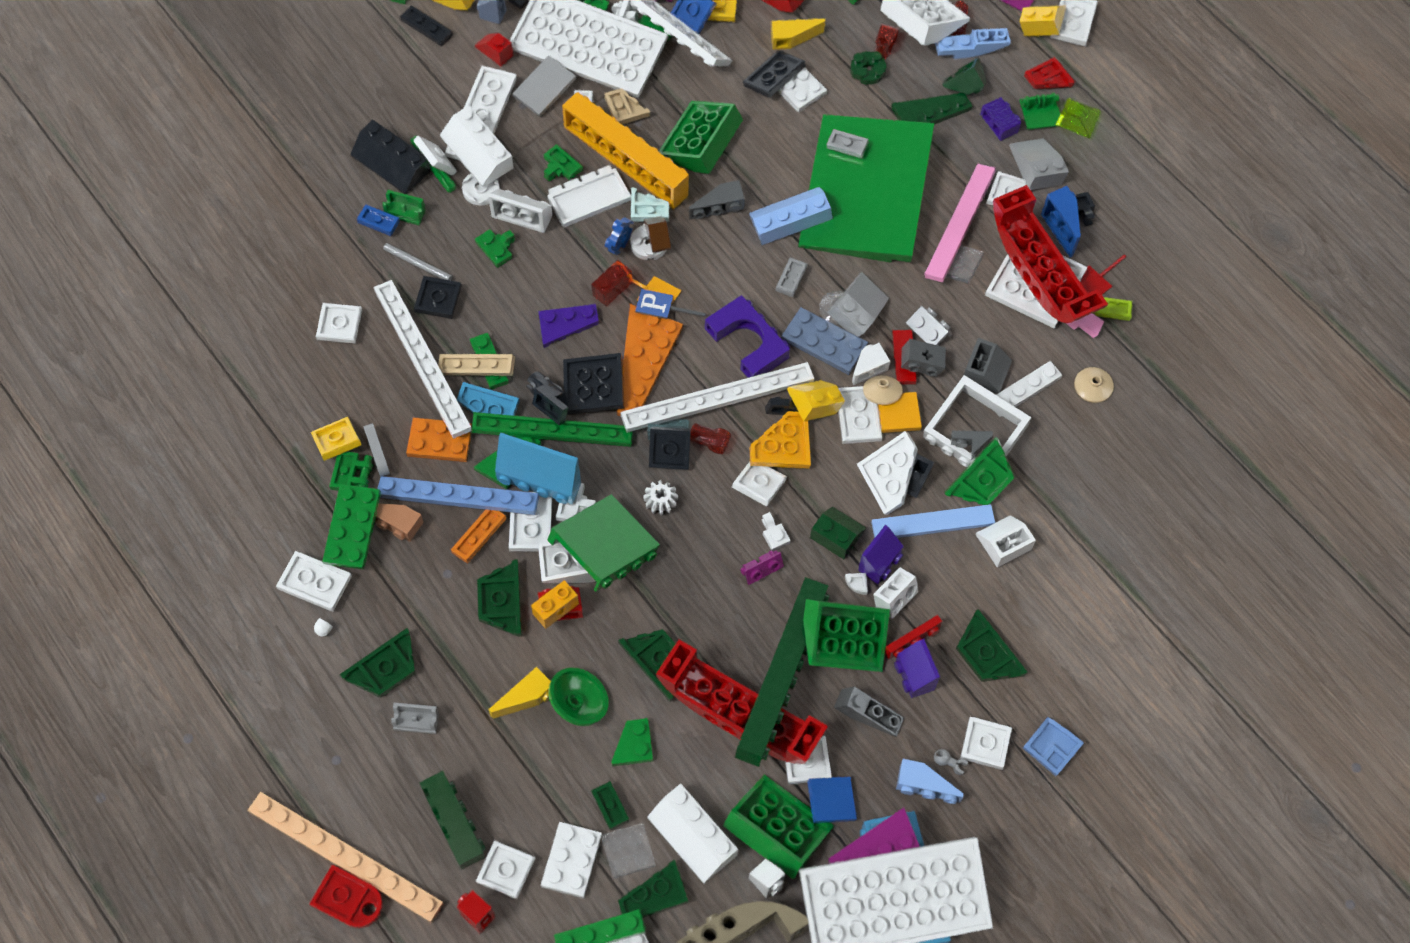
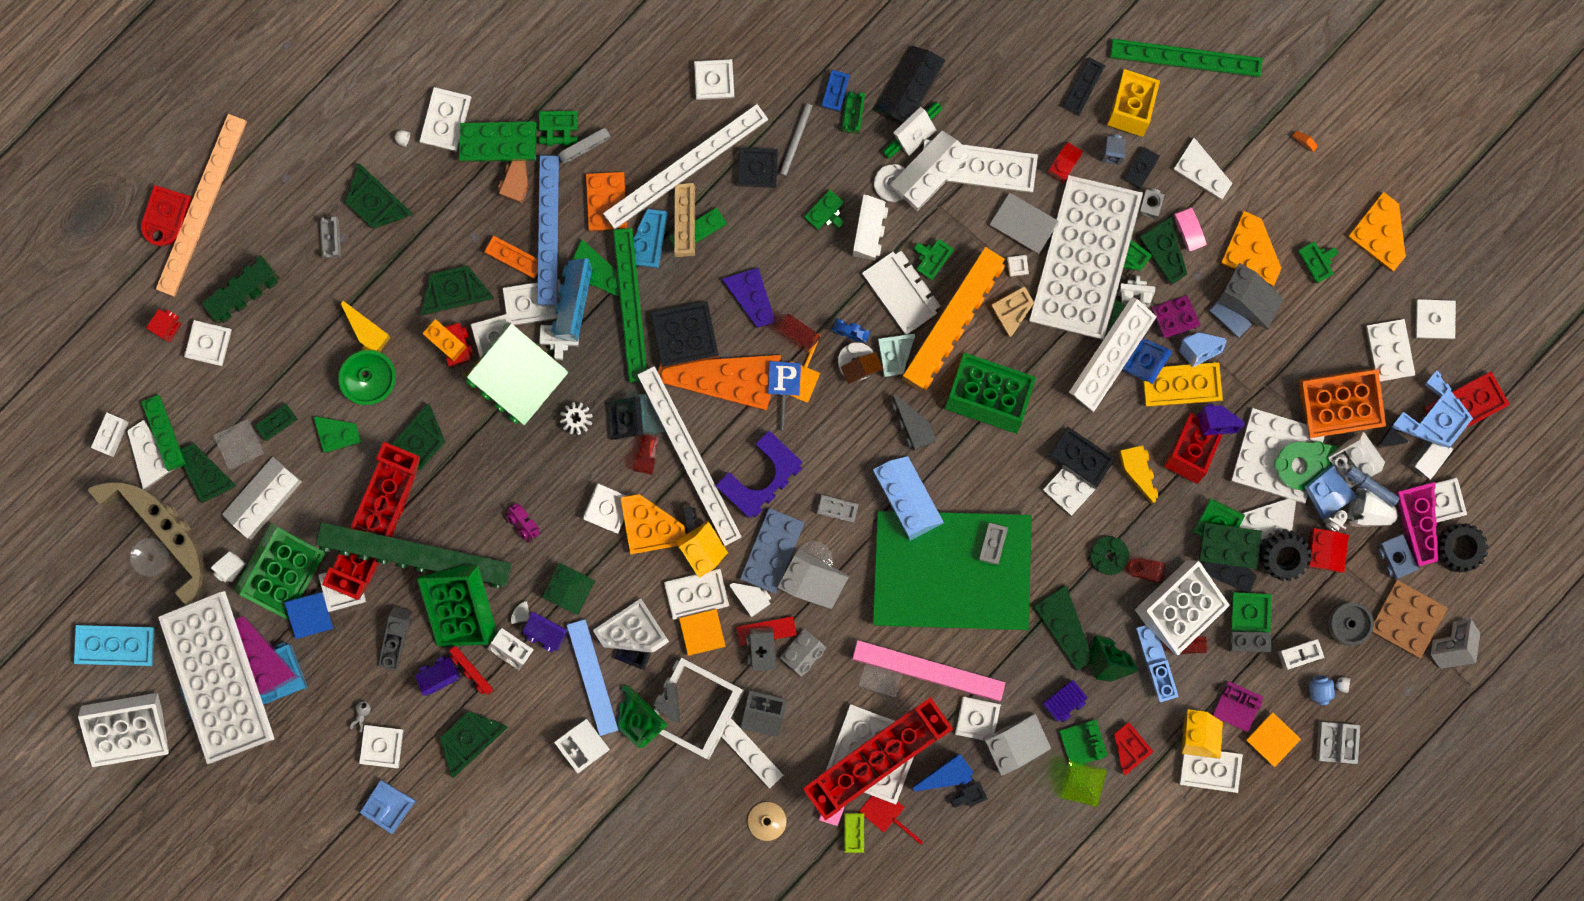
camera: 80 degrees right, 20 degrees up
(336, 438) = (589, 105): yellow tile -> none
(548, 397) = (662, 294): black plate -> none
(571, 860) = (225, 397): white plate -> none
(775, 534) = (557, 531): white plate -> none
(882, 390) = (714, 617): tan dish -> none
(921, 779) = (338, 691): light blue slope -> none

